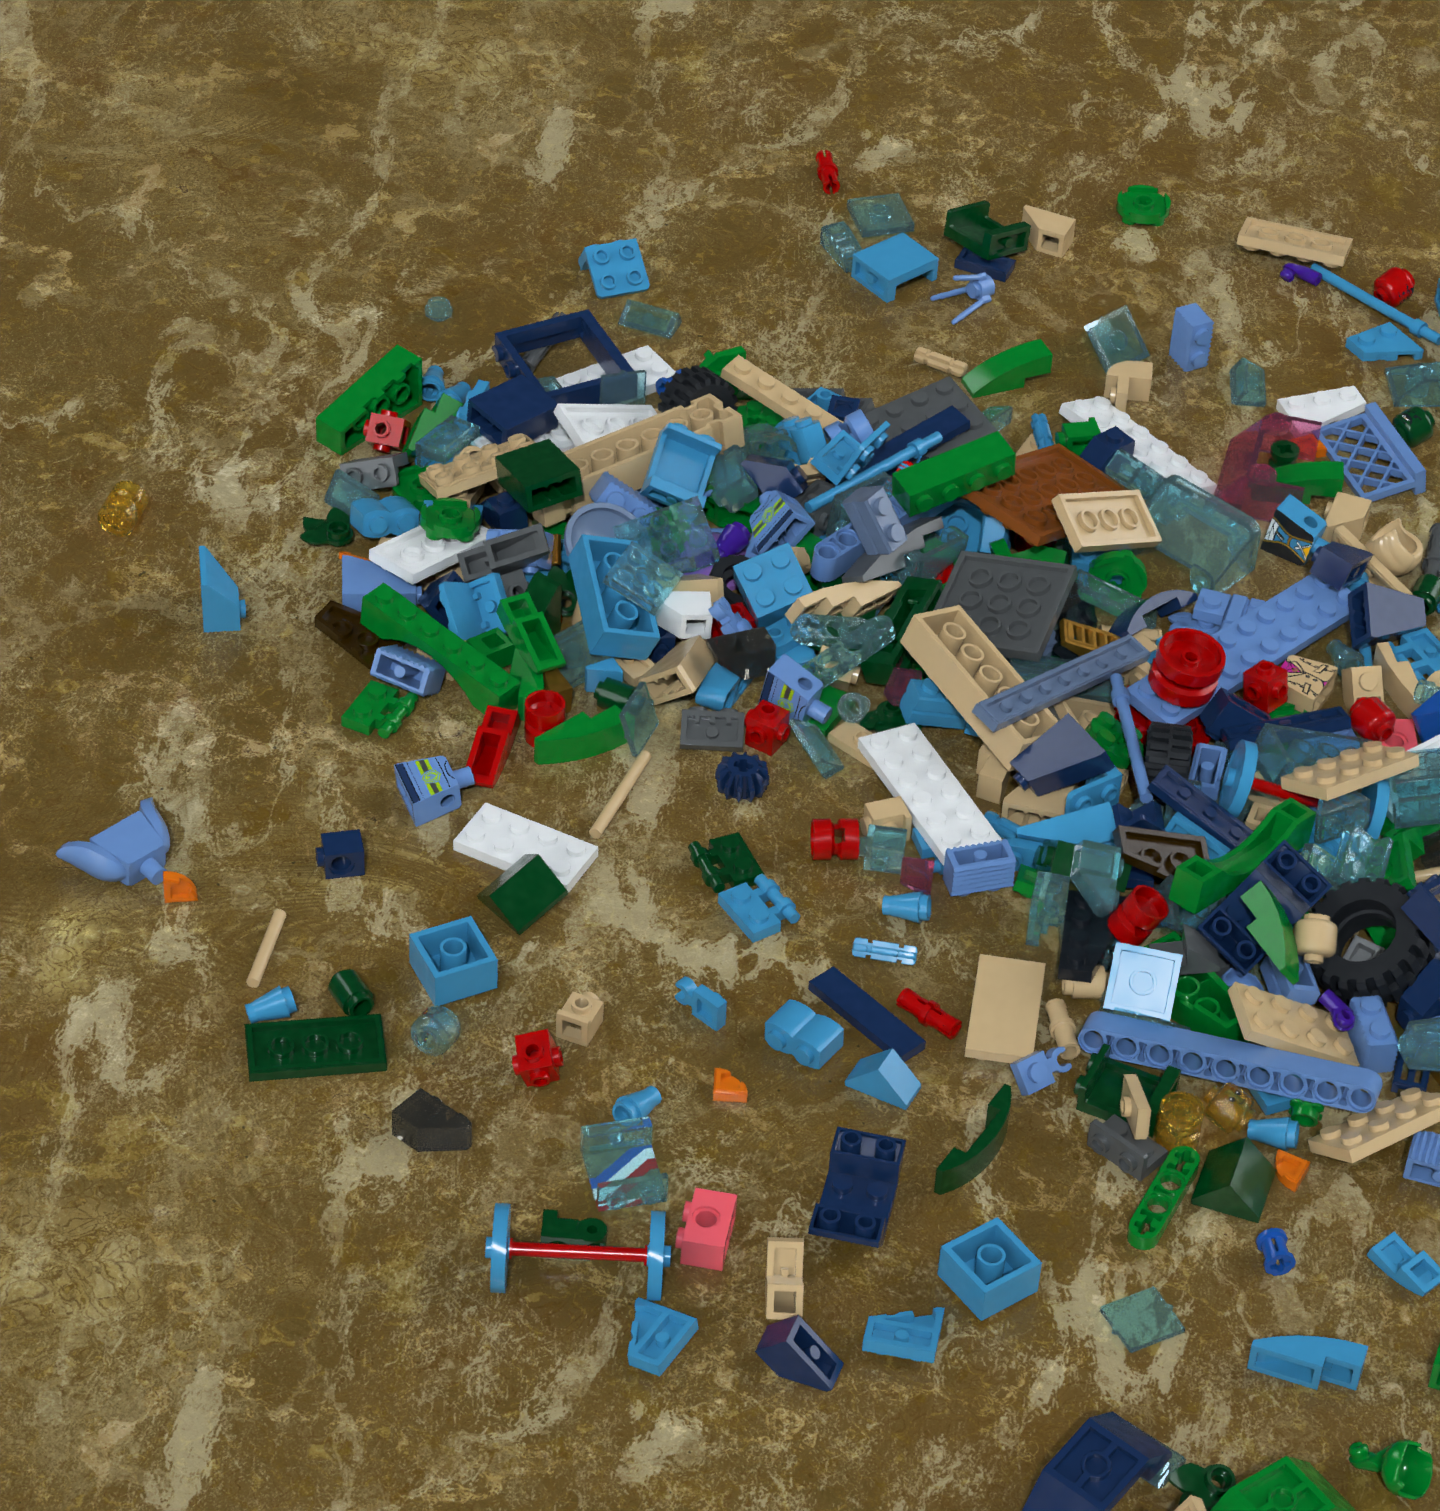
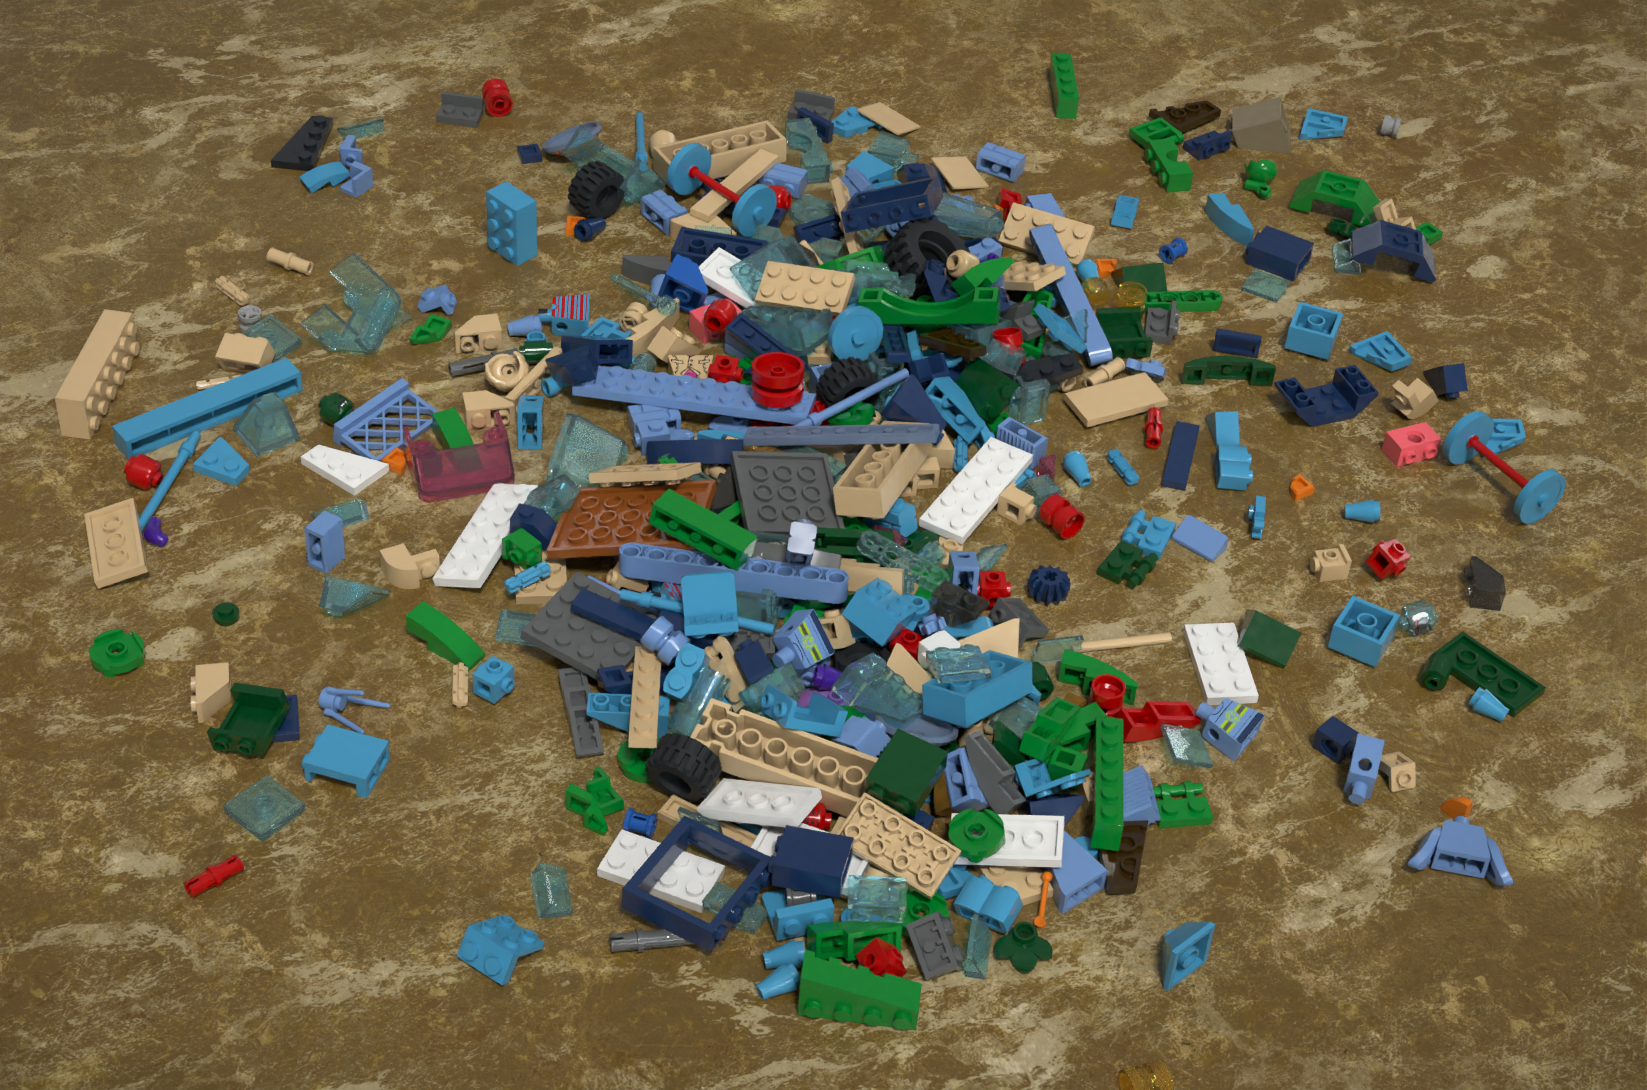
camera: 125 degrees left, 0 degrees up
(266, 948) = (1445, 740): tan bar -> none
(267, 875) = (1400, 771): none -> tan bracket
(284, 838) = (1361, 776): none -> medium blue torso
(438, 309) = (666, 1040): clear light blue plate -> none
(444, 741) = (1186, 746): none -> clear light blue piece
(572, 1231) = (1482, 494): dark green leg -> none
(622, 1164) = (1412, 497): clear light blue panel -> none
(714, 944) = (1200, 538): none -> medium blue slope
(840, 244) = (331, 826): clear light blue slope -> none
(921, 367) = (493, 679): none -> dark azure brick
(1028, 1187) = (1237, 343): none -> dark blue tile
(1135, 1106) = (1144, 314): tan plate -> none
(1149, 275) = (225, 614): none -> dark green plate
(1193, 1363) = (1279, 253): none -> dark blue brick

